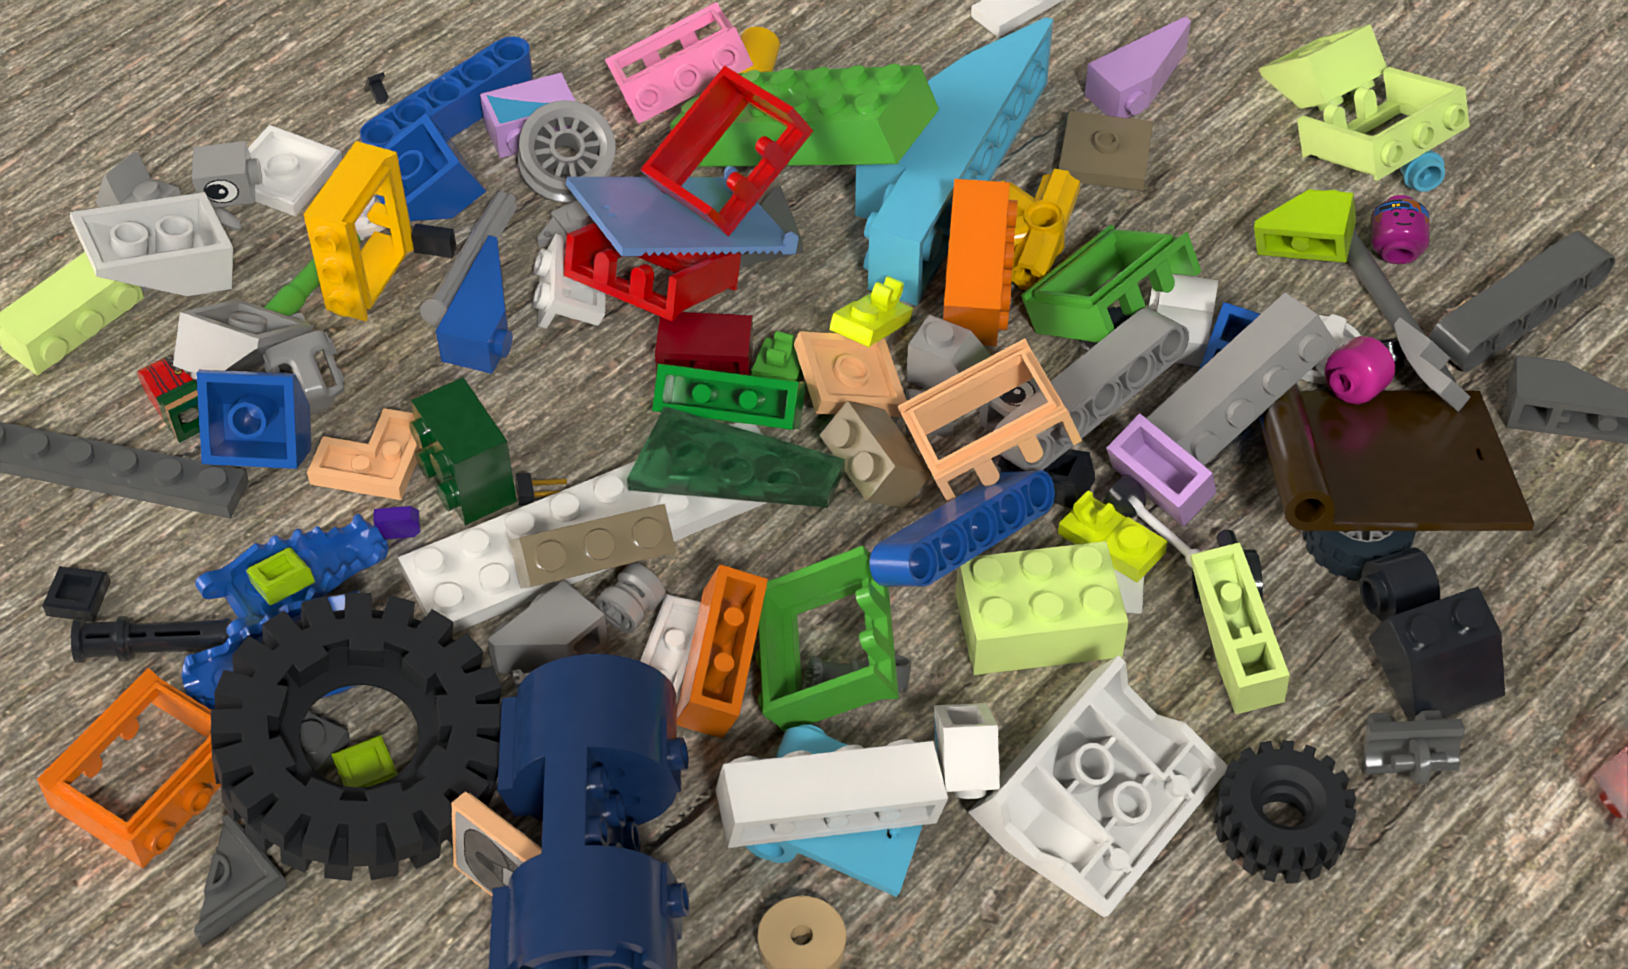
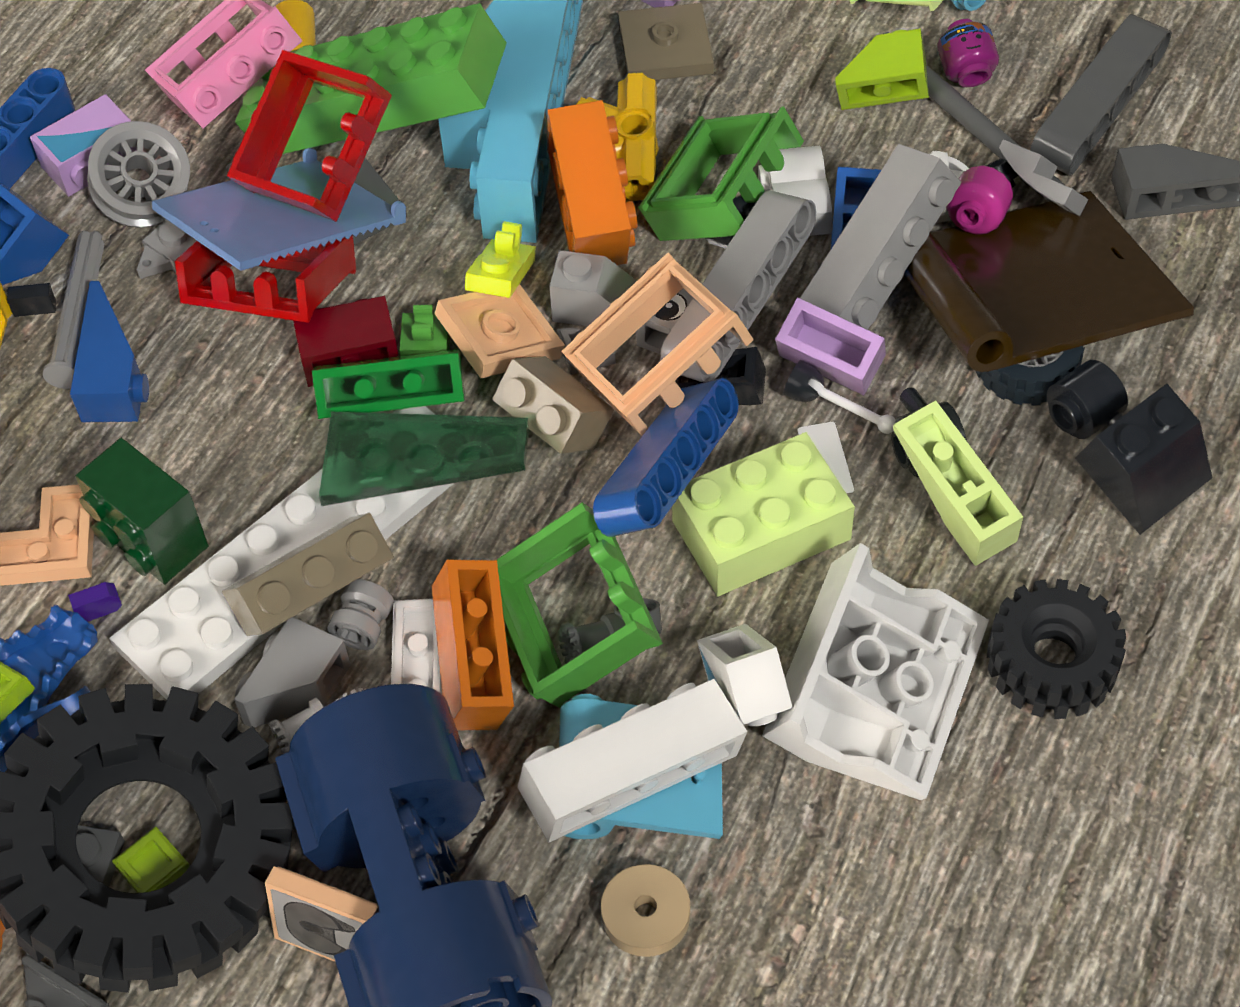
camera: 15 degrees left, 5 degrees up
(525, 485) = (214, 531): black piece -> none
(562, 294) = (180, 322): white bracket -> none
(1130, 544) = (786, 416): neon yellow plate -> none
(1412, 746) = (1150, 552): dark grey hips -> none

